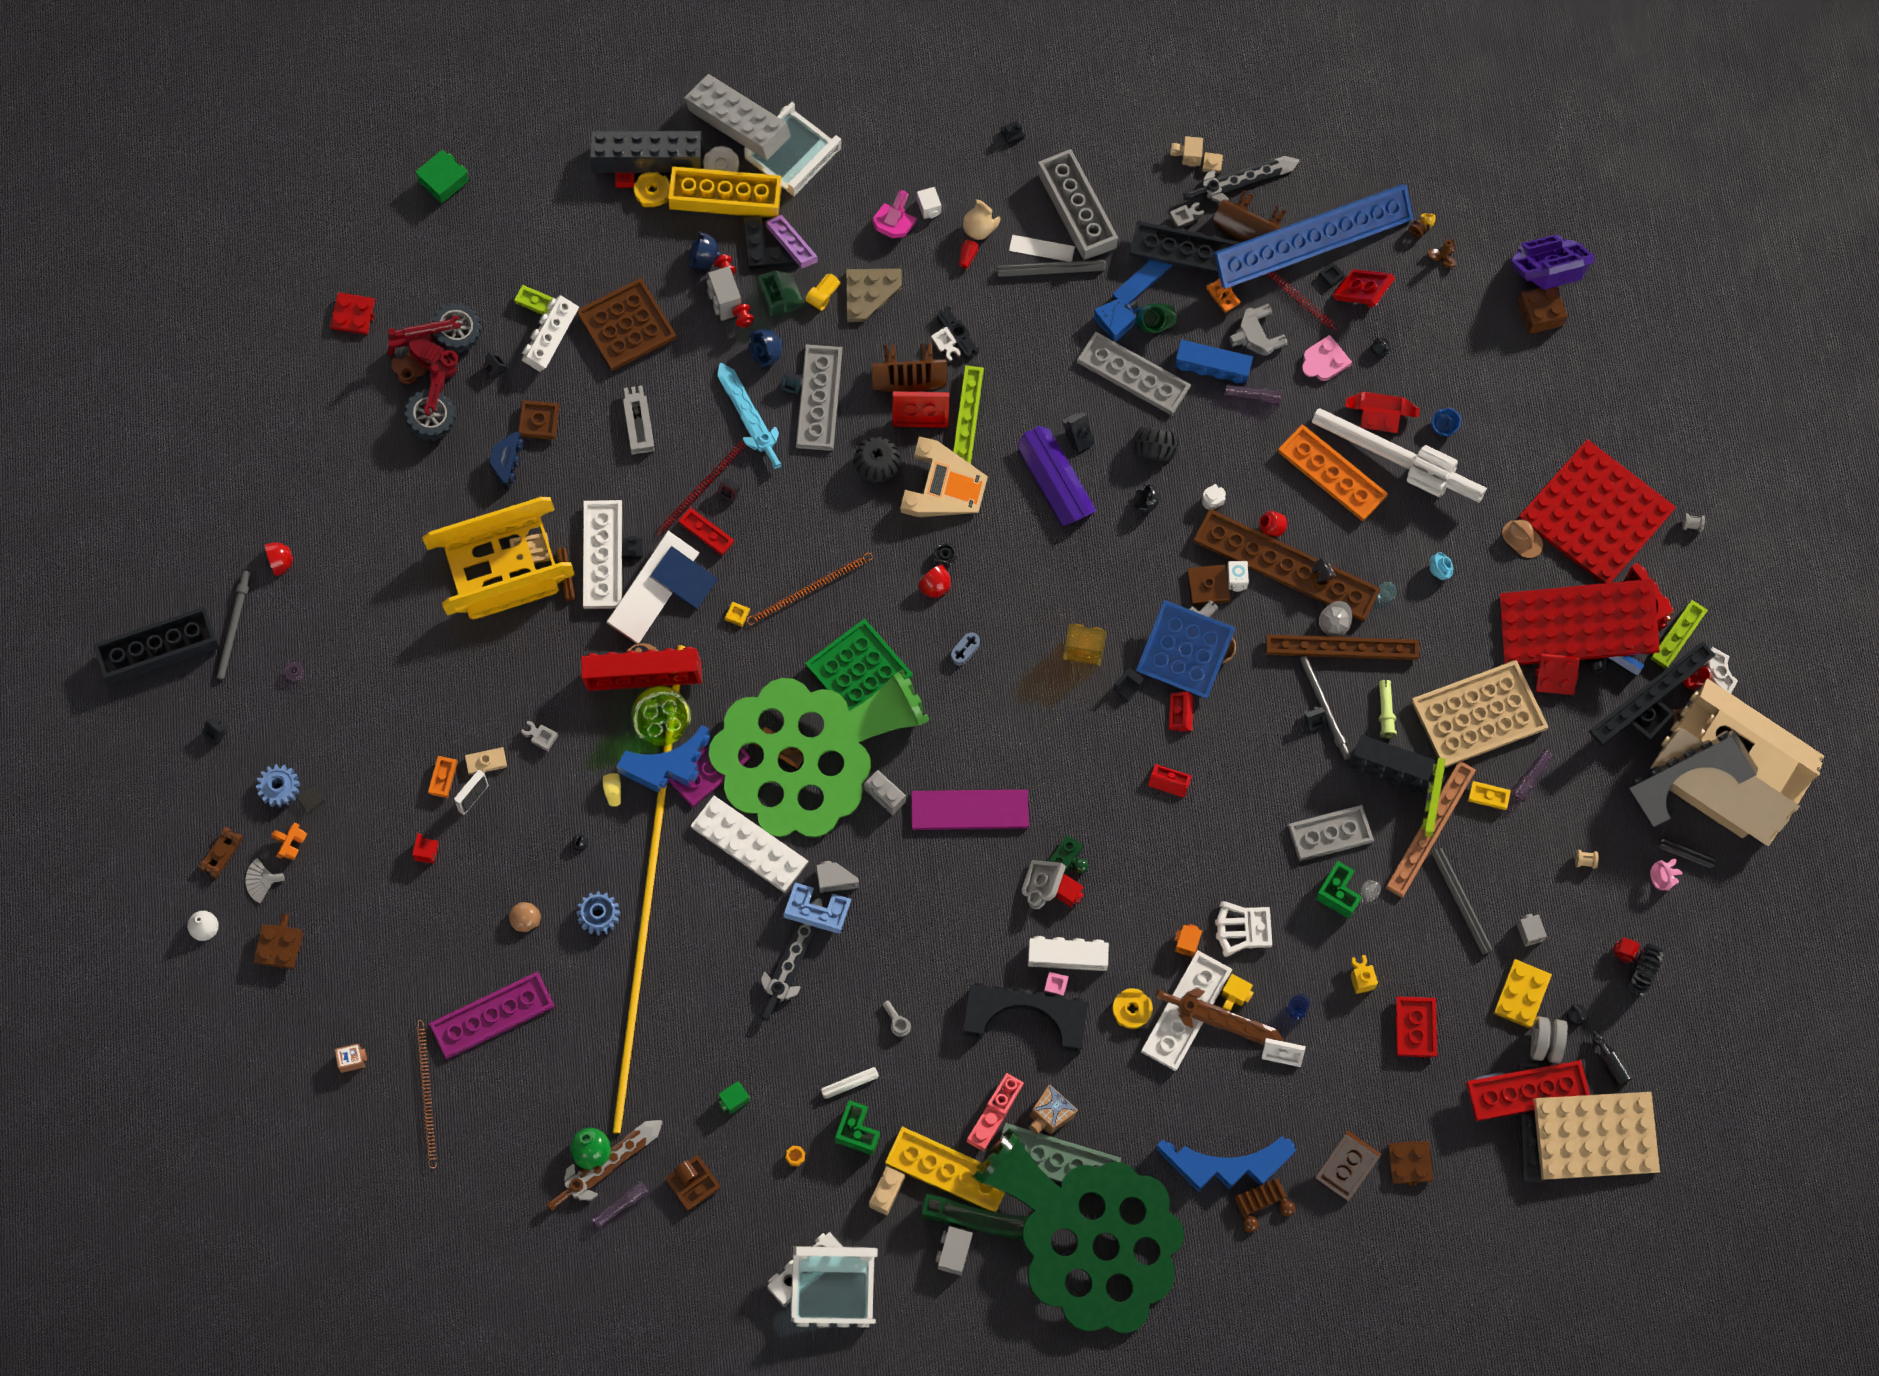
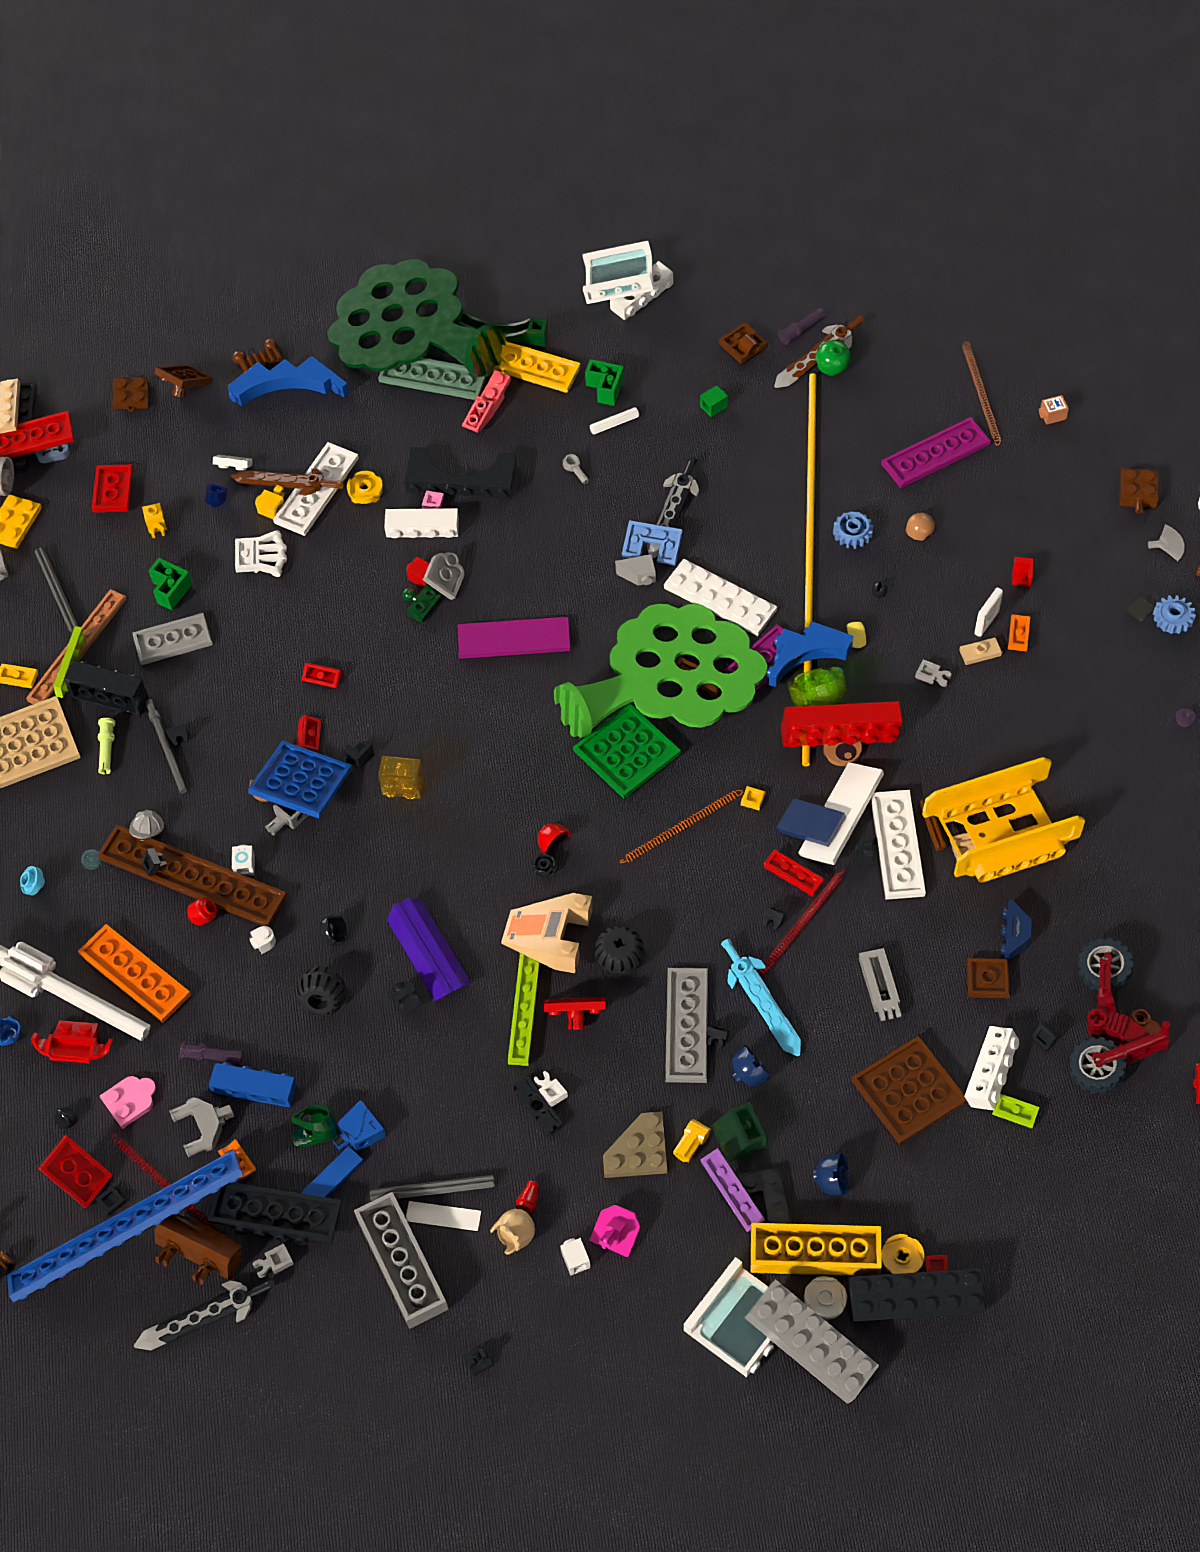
camera: 175 degrees left, 10 degrees down
(293, 834) = (1153, 566): orange hips -> none
(442, 176) = (1152, 1251): green brick -> none
(726, 294) = (800, 1121): light grey brick -> none
(795, 1156) = (657, 366): light orange tile -> none
(885, 792) = (594, 641): light grey brick -> none
(886, 1190) = (578, 343): tan brick -> none
(910, 375) = (589, 1047): reddish brown piece -> none
(955, 1250) = (519, 307): light grey brick -> none
(961, 646) = (518, 776): sand blue beam -> none
(1051, 1112) = (438, 404): medium nougat torso -> none
(1133, 373) = (342, 1072): light grey tile -> none
(1188, 940) = (312, 540): orange brick -> none
(1190, 150) = (263, 1342): tan brick -> none
(1208, 584) = (273, 854): reddish brown plate -> none
(1212, 162) = (238, 1334): tan plate -> none
(1342, 647) = (143, 800): reddish brown plate -> none
(1371, 890) = (140, 593): clear tile -> none

